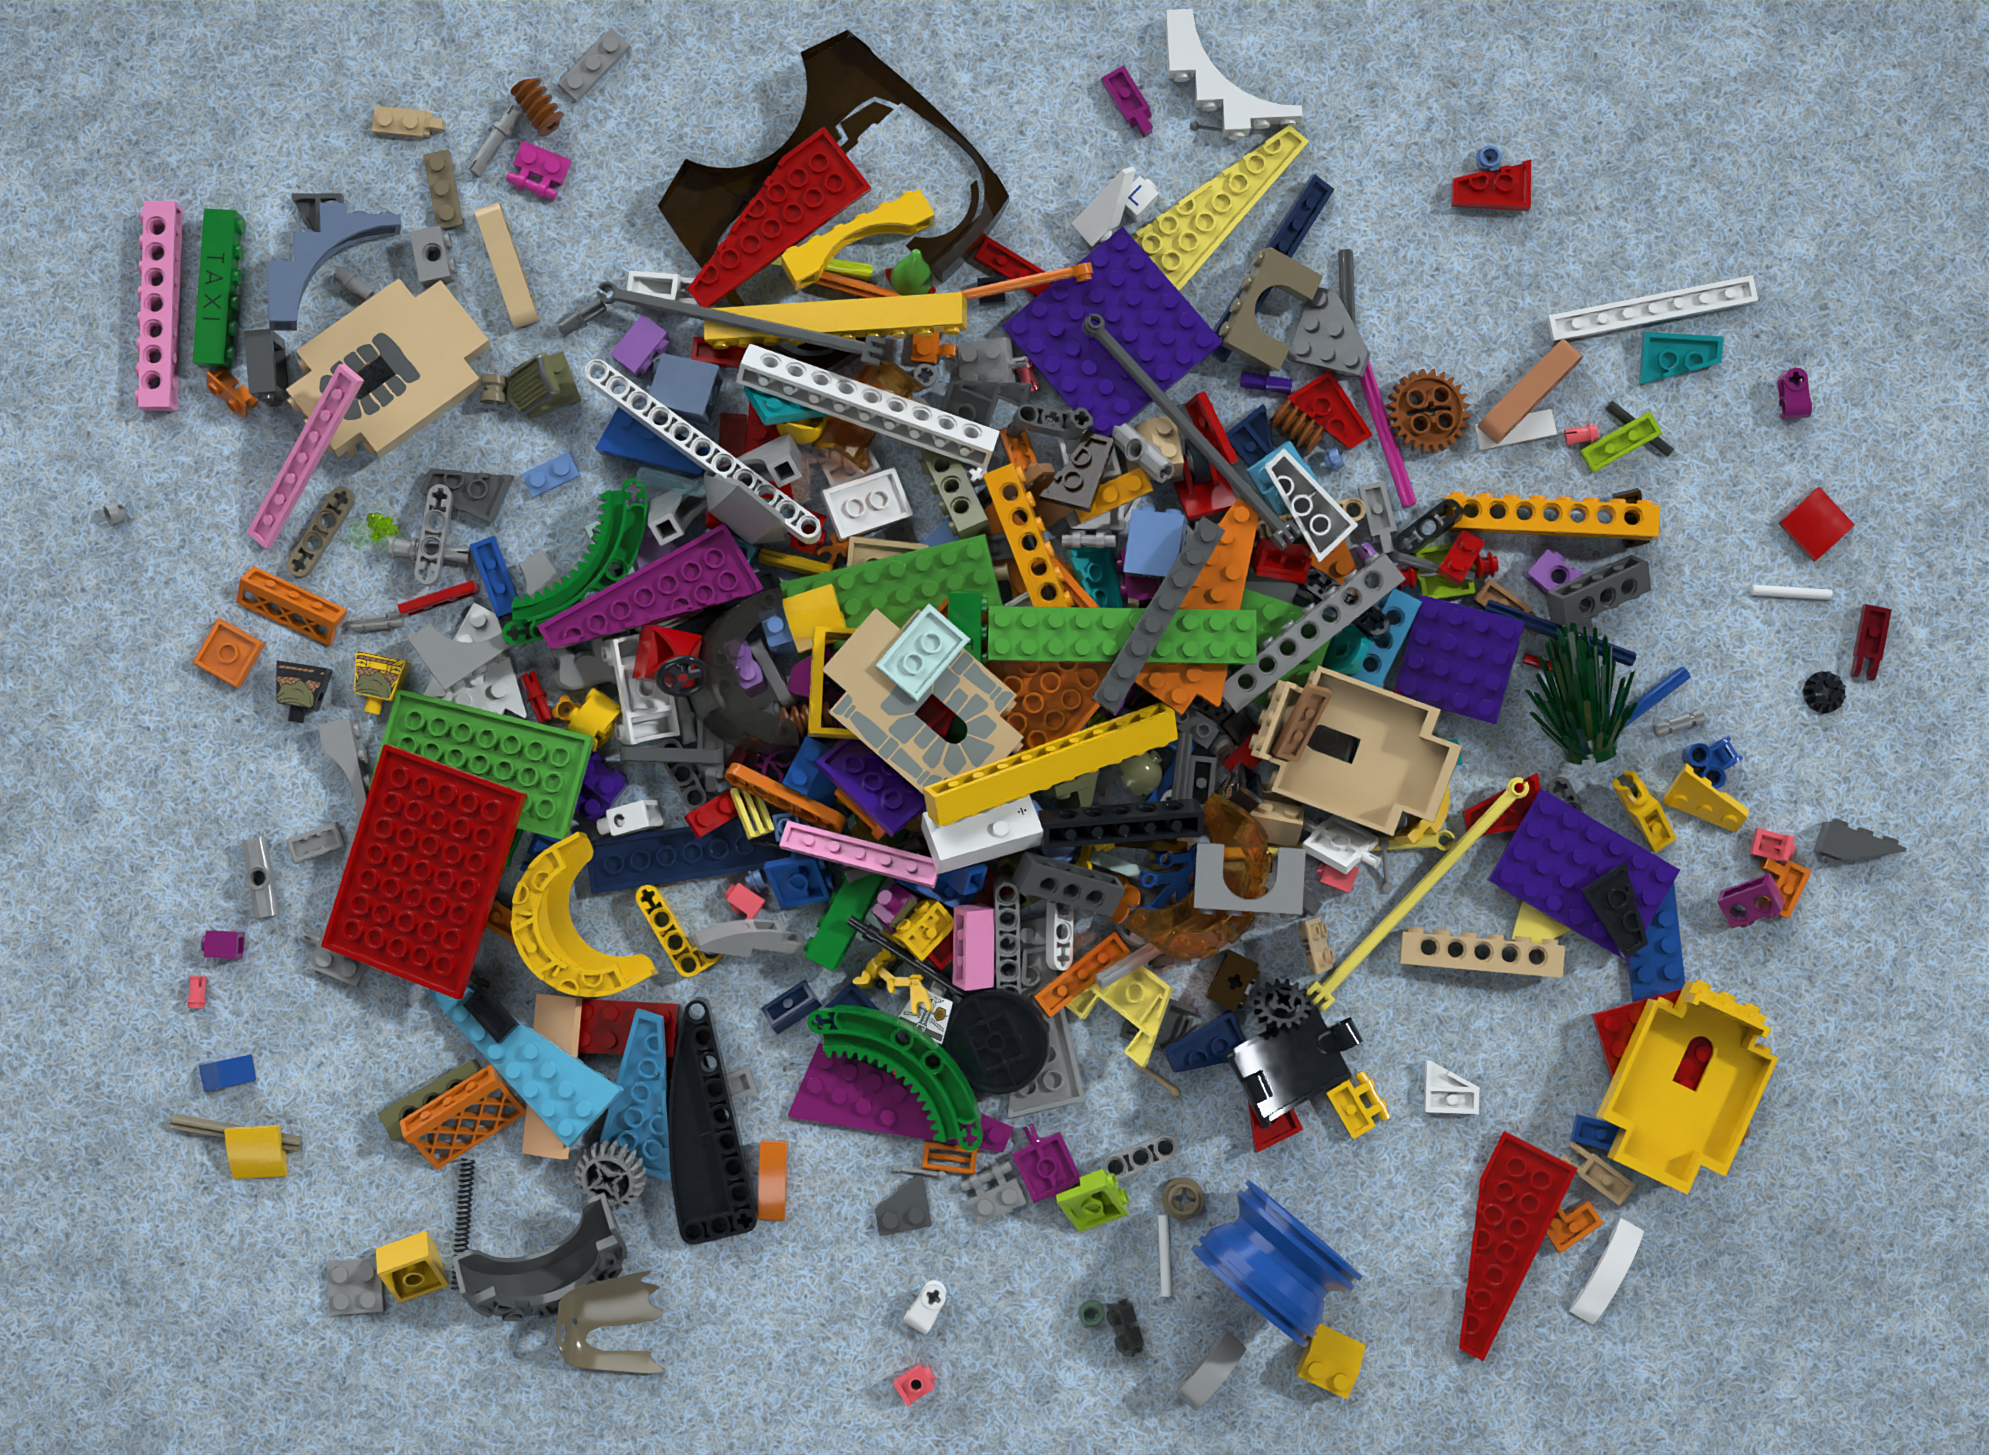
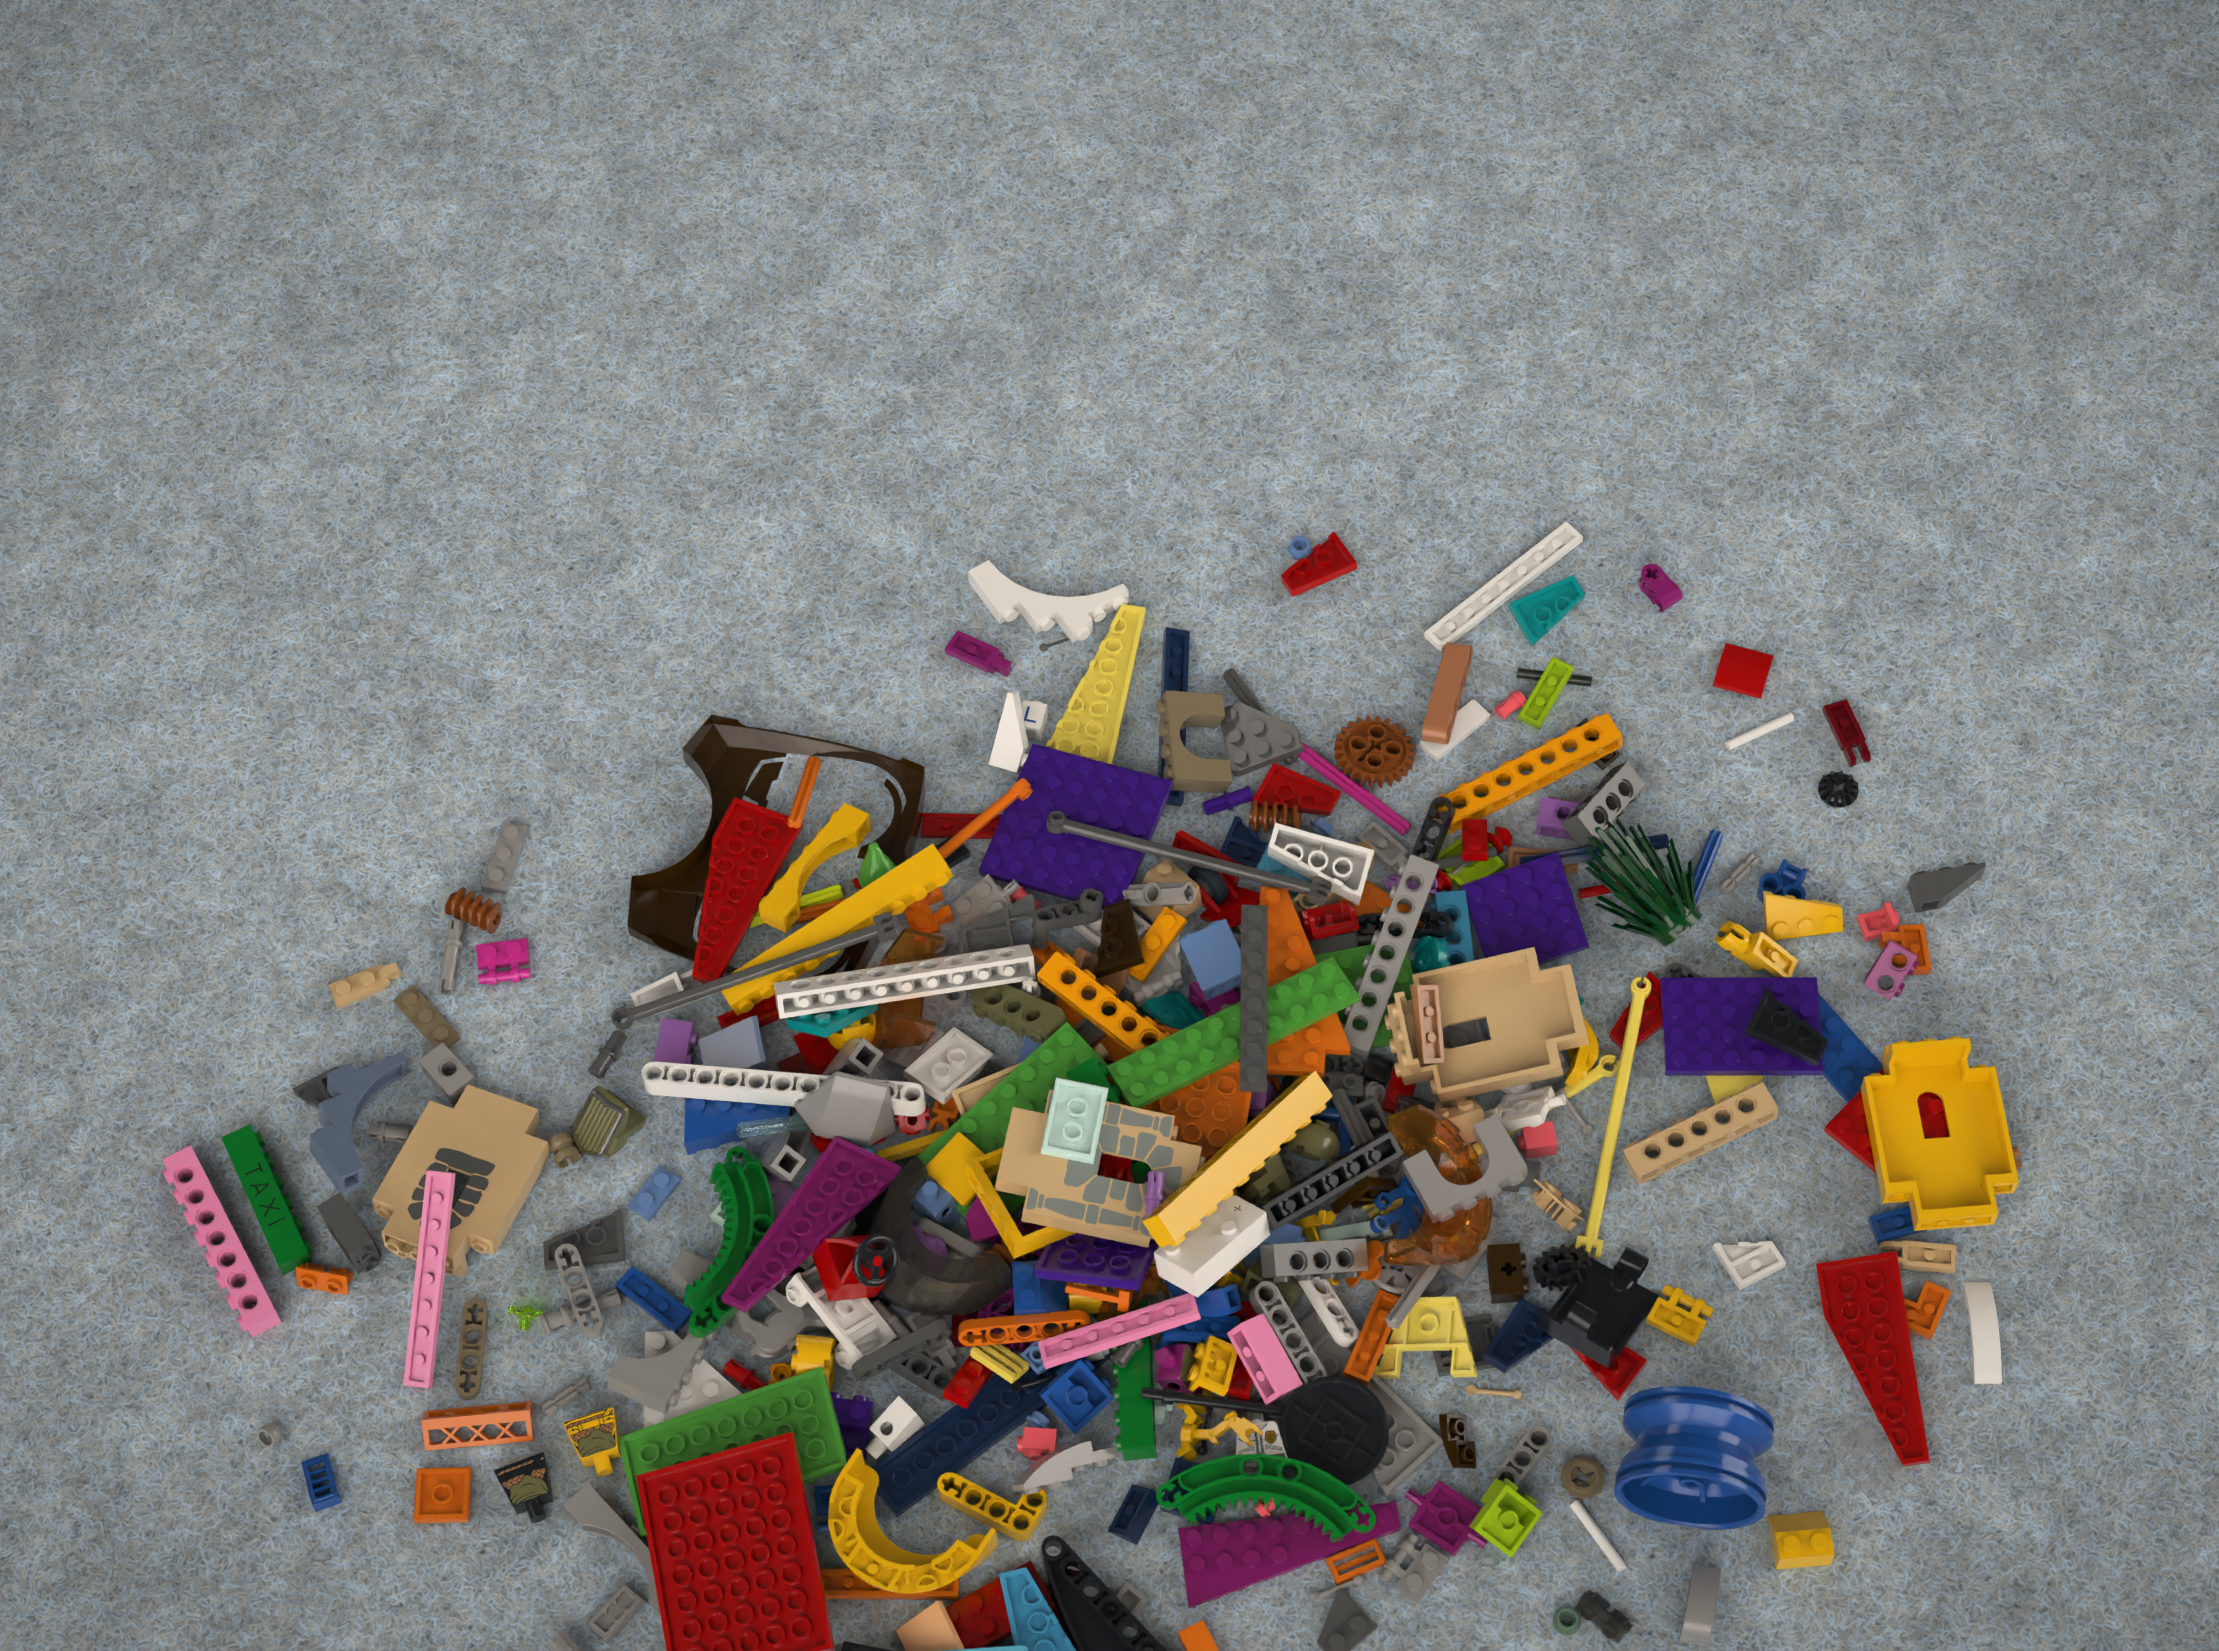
camera: 30 degrees left, 25 degrees down
(143, 590) = (327, 1500): none -> blue slope
(439, 598) = (612, 1344): red tile -> none
(506, 265) = (520, 1046): tan beam -> none
(890, 156) = (804, 792): none -> orange axle
(952, 764) = (1154, 1192): none -> medium lavender pin
(1094, 1111) = (1454, 1437): none -> dark brown slope

